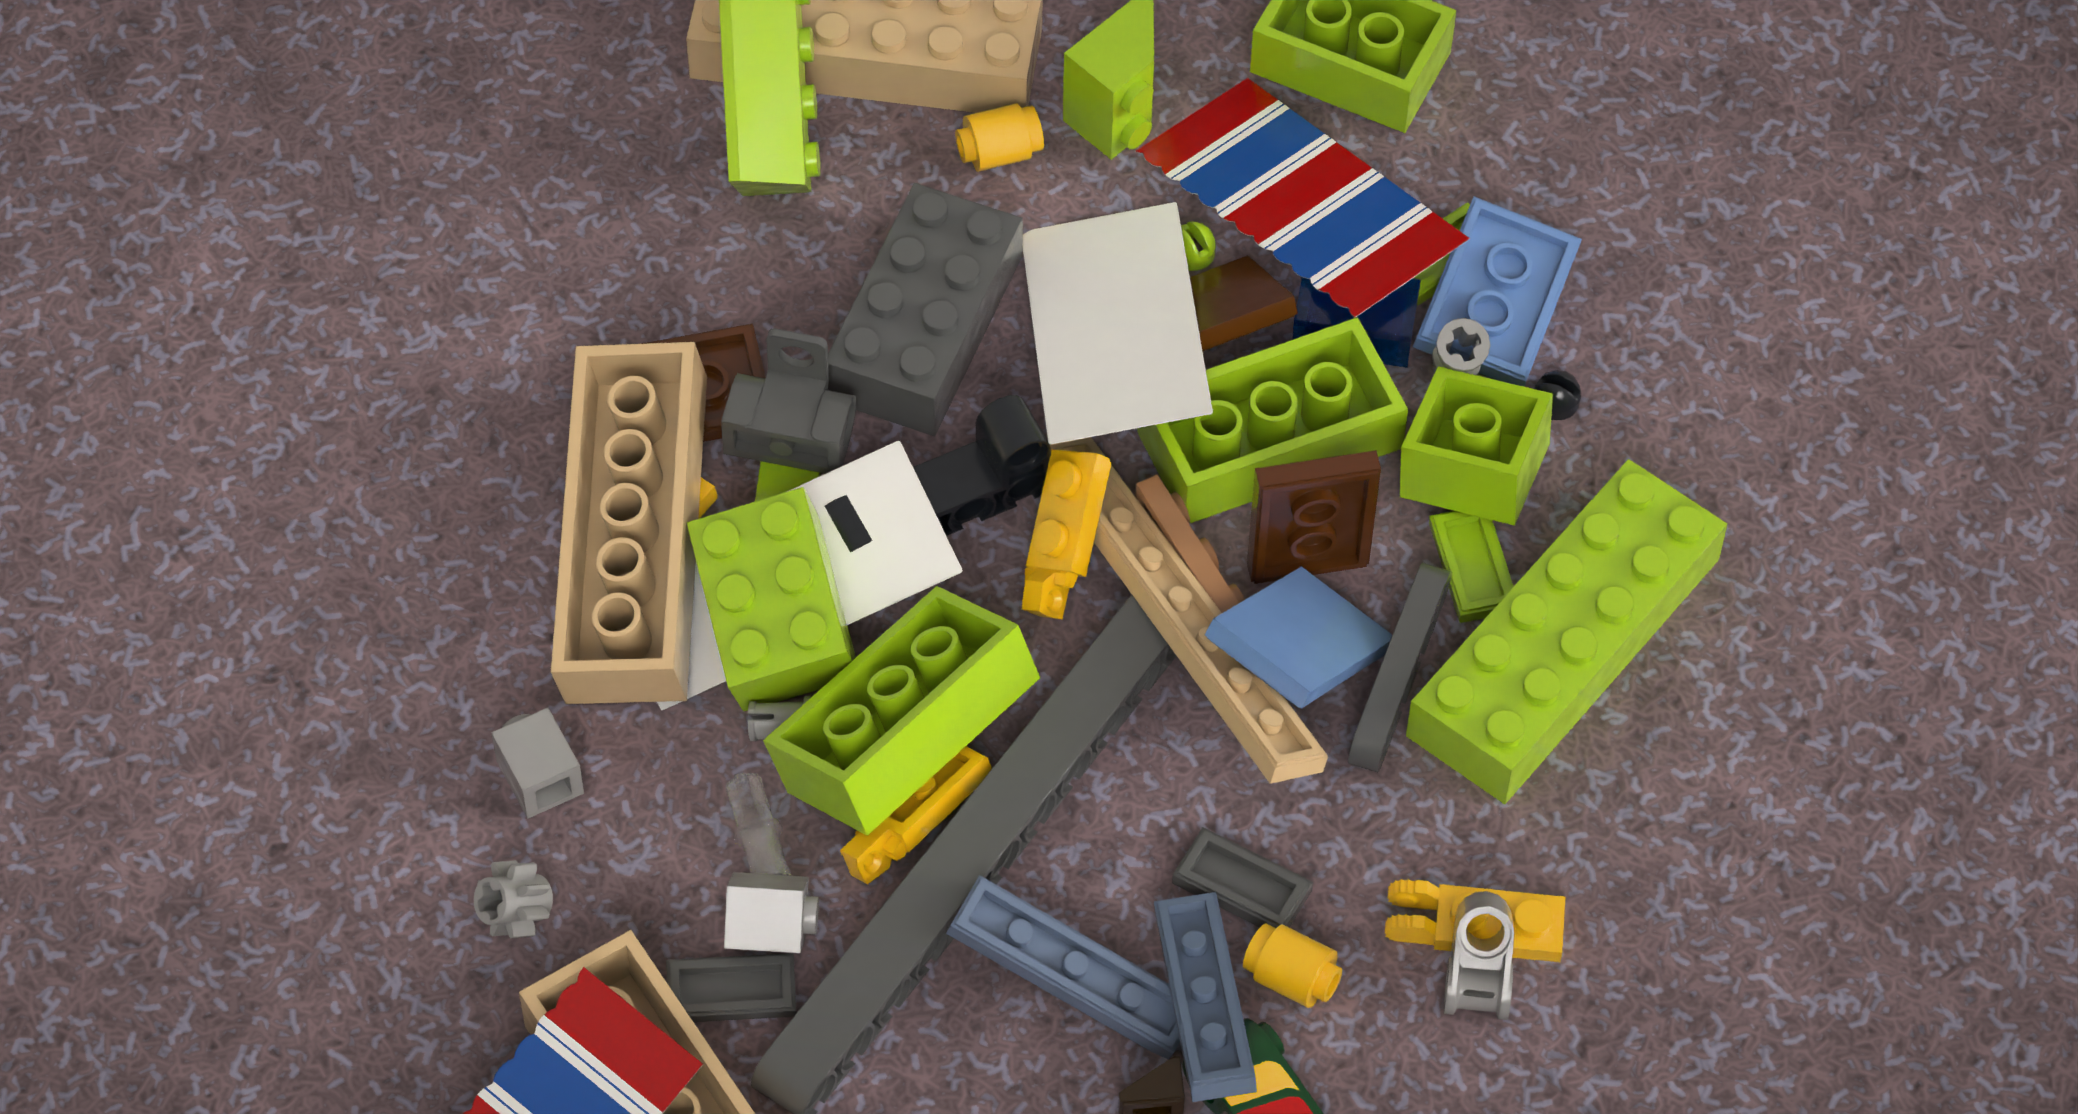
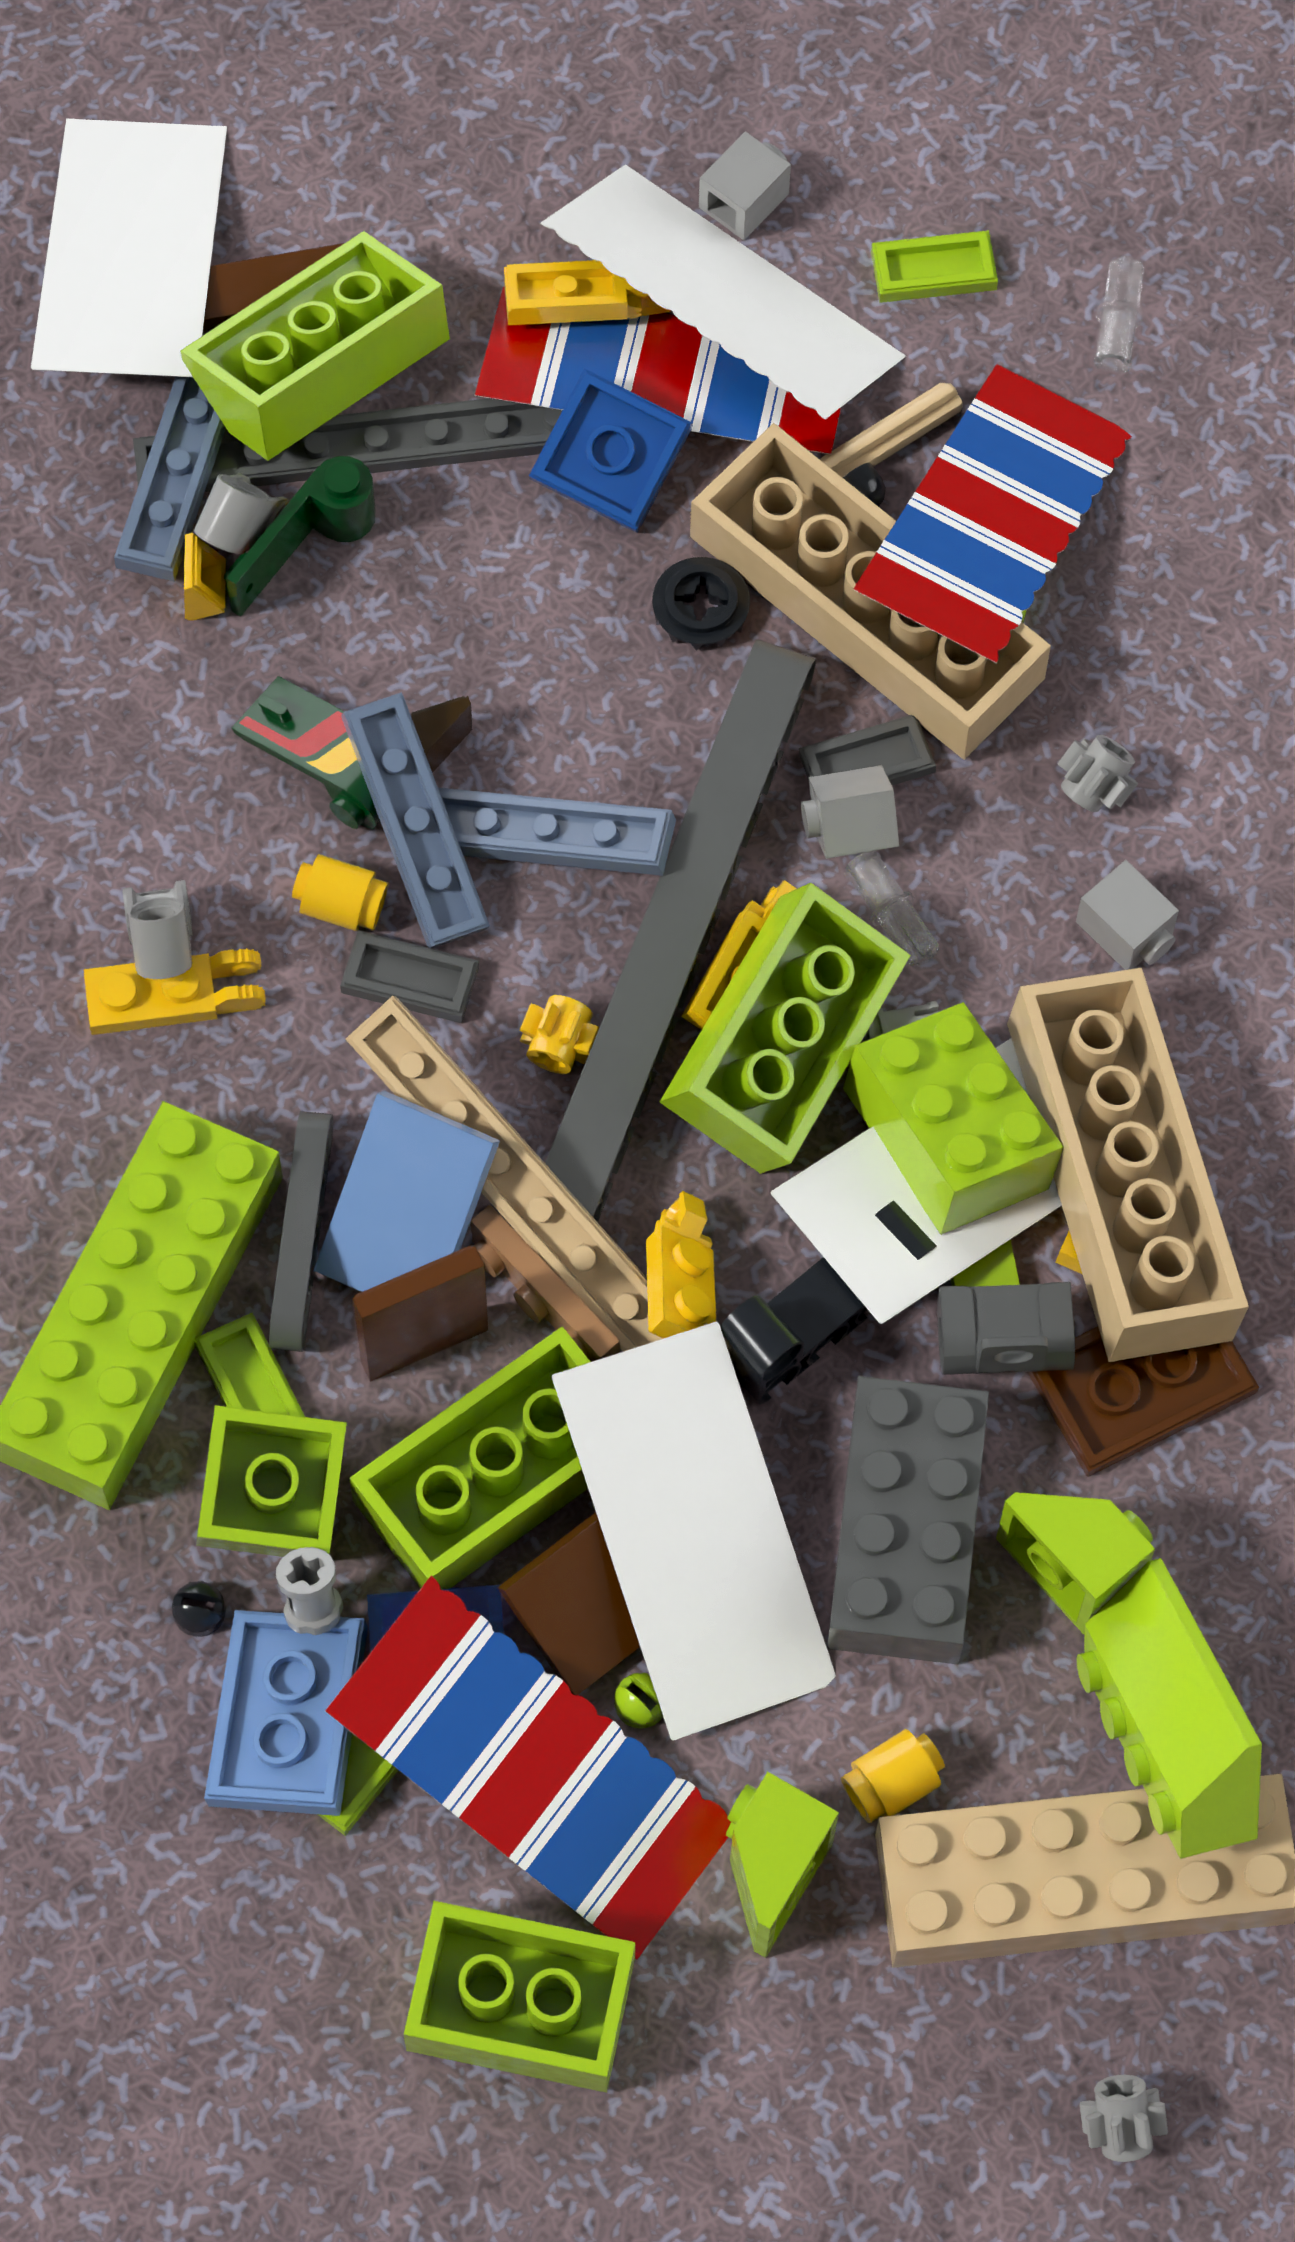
camera: 165 degrees right, 10 degrees up
(789, 233) = (1074, 1548): none -> lime slope
(1114, 776) = (558, 1033): none -> yellow gear

